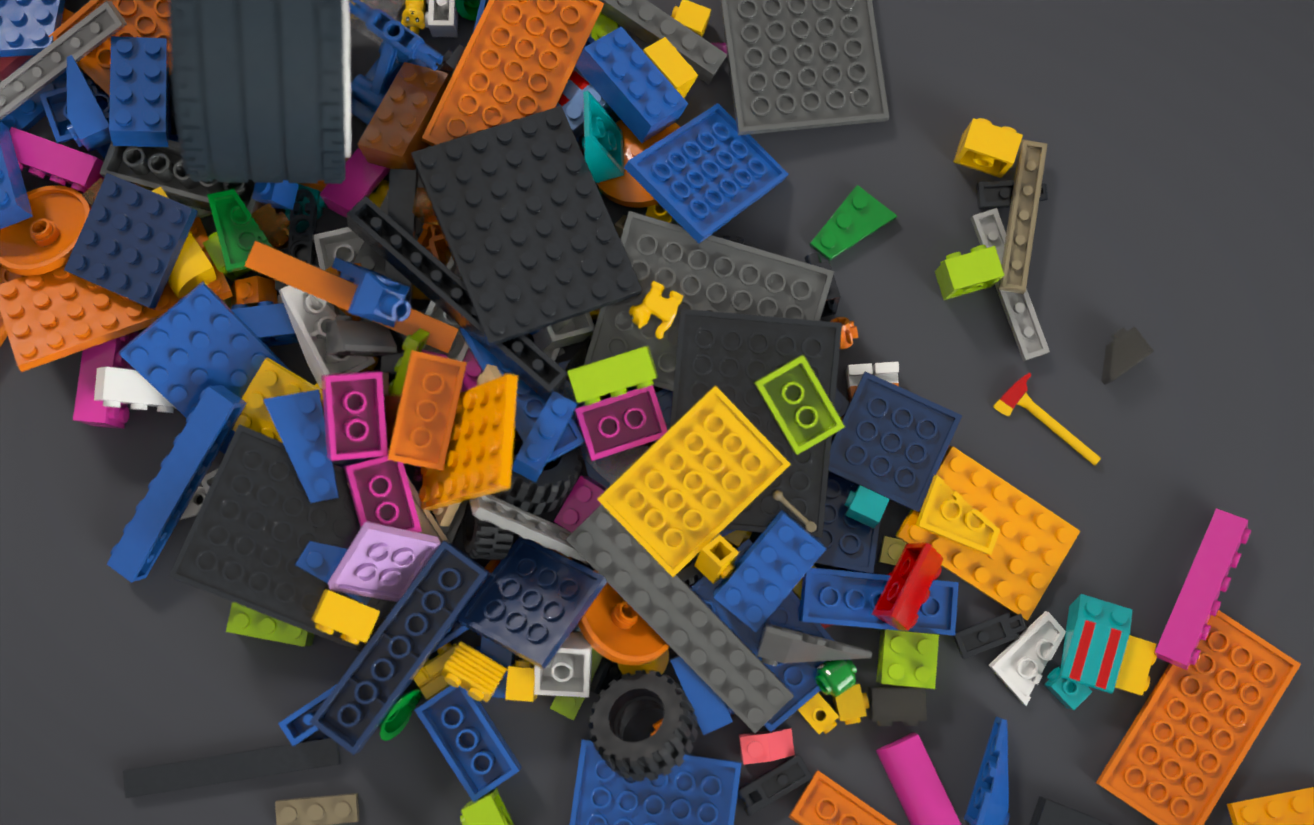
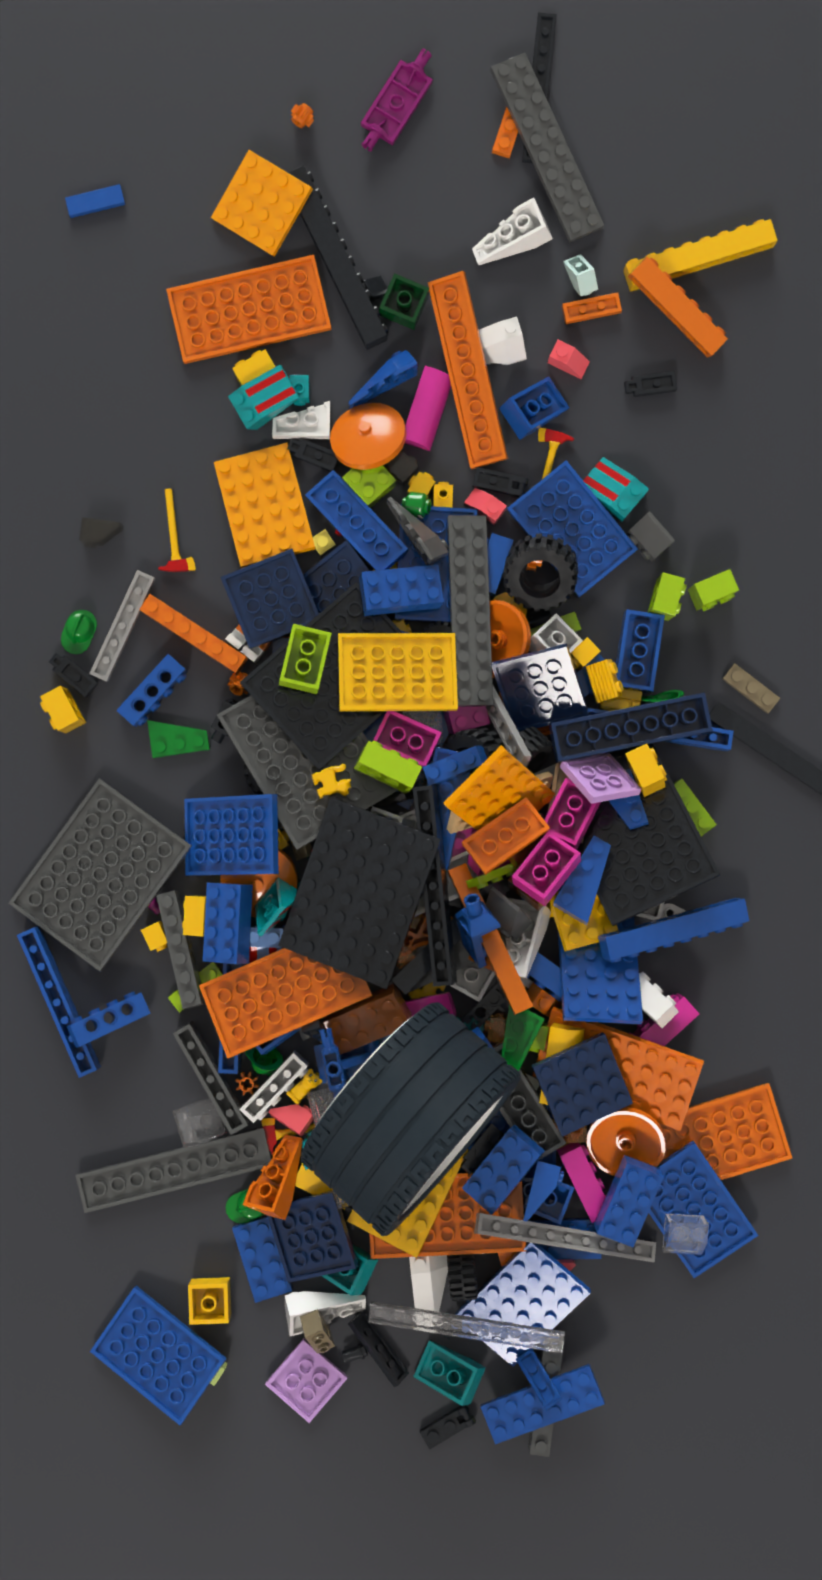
camera: 140 degrees left, 5 degrees up
(717, 559) = (423, 620): yellow brick -> none
(809, 525) = (357, 592): dark tan hinge -> none
(865, 506) = (317, 577): teal brick -> none
(908, 586) = (334, 515): red slope -> none
(925, 209) = (141, 693): none -> blue brick
(933, 339) = (193, 634): none -> orange brick
(952, 703) = (368, 436): none -> orange dish
(953, 518) = (276, 526): yellow wing -> none
(969, 272) = (137, 649): lime brick -> none
(1022, 216) = (80, 655): dark tan tile -> none
(1050, 243) = (78, 631): none -> green piece
(1202, 588) = (179, 373): dark pink brick -> none

